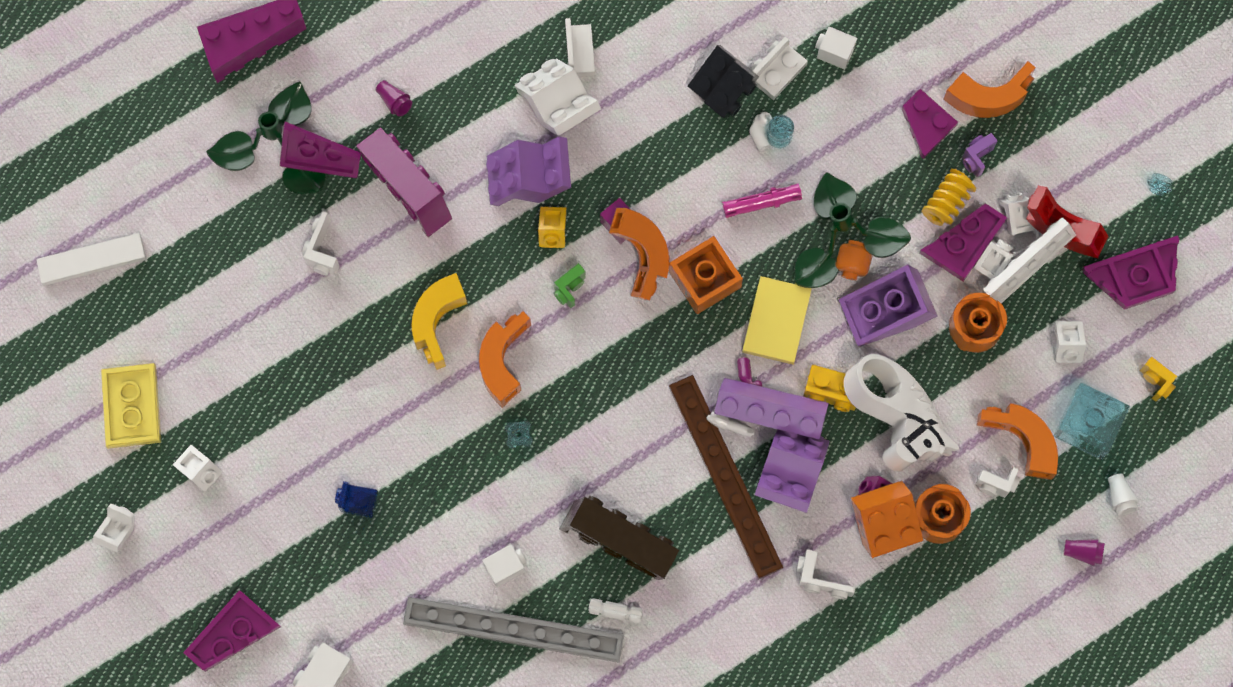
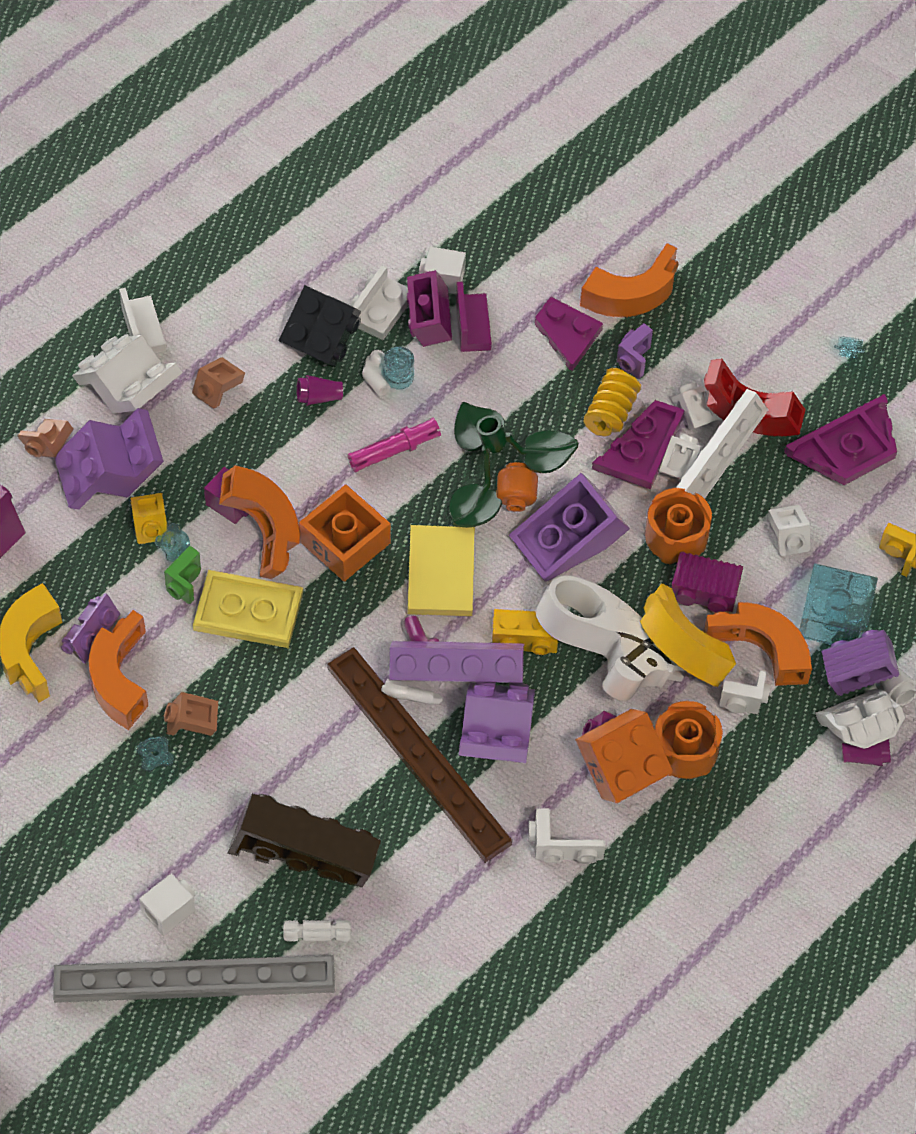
camera: 15 degrees left, 15 degrees down
(484, 140) = (47, 439): none -> nougat bracket
(496, 307) = (98, 614): none -> medium lavender hinge
(553, 408) = (191, 714): none -> nougat bracket
(572, 256) = (180, 538): none -> clear light blue plate
(615, 322) = (248, 609): none -> light yellow tile
(629, 114) = (216, 379): none -> nougat bracket
(709, 139) = (317, 390): none -> magenta cone
(816, 83) = (429, 308): none -> magenta brick
(851, 98) = (473, 320): none -> magenta panel
(955, 428) = (684, 642): none -> yellow arch
(989, 377) = (706, 582): none -> magenta brick
(1087, 525) = (864, 719): none -> white slope
(1097, 475) = (860, 662): none -> medium lavender brick

